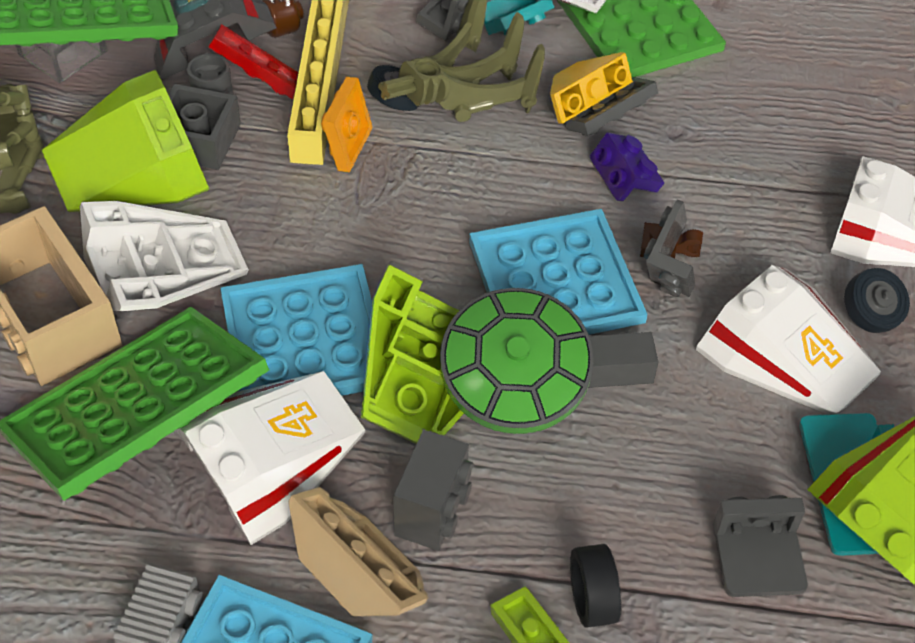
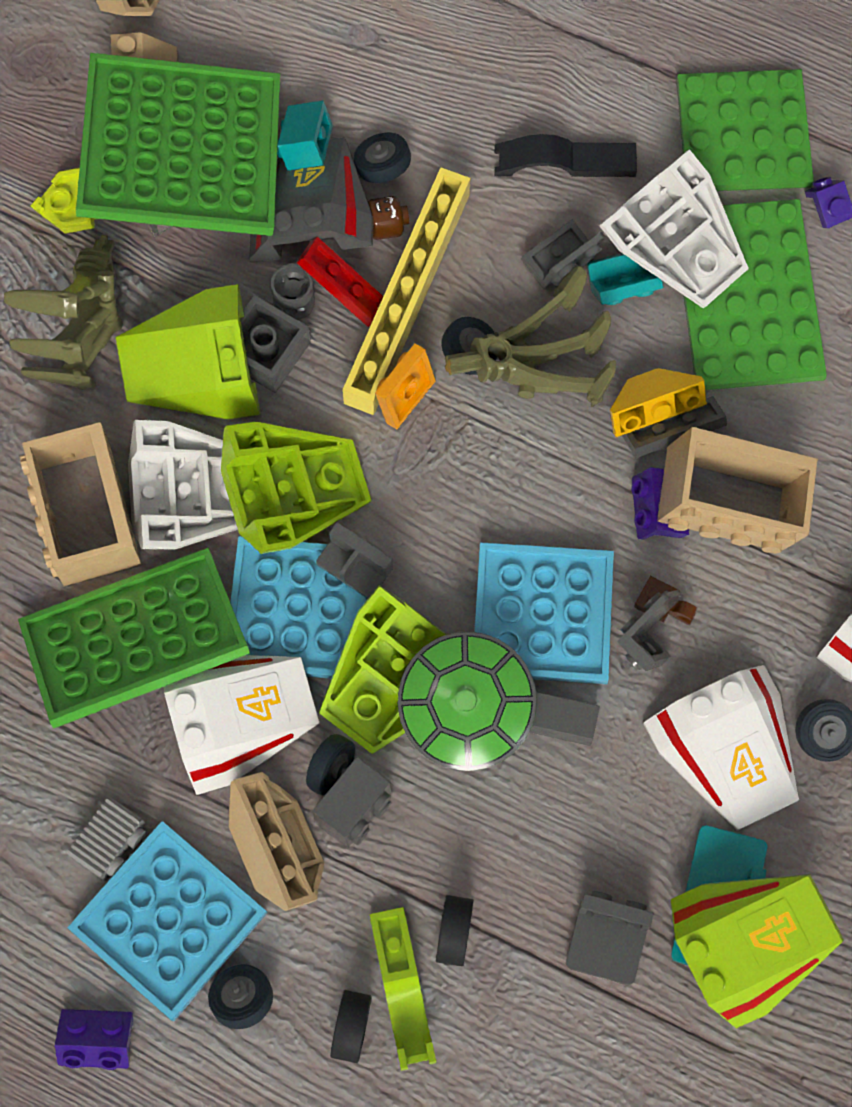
camera: 20 degrees right, 20 degrees up
(254, 225) = (289, 483): none -> lime wedge
(349, 270) = (354, 561): none -> dark grey panel
(389, 459) = (329, 763): none -> black wheel
(696, 123) = (744, 460): none -> tan hose

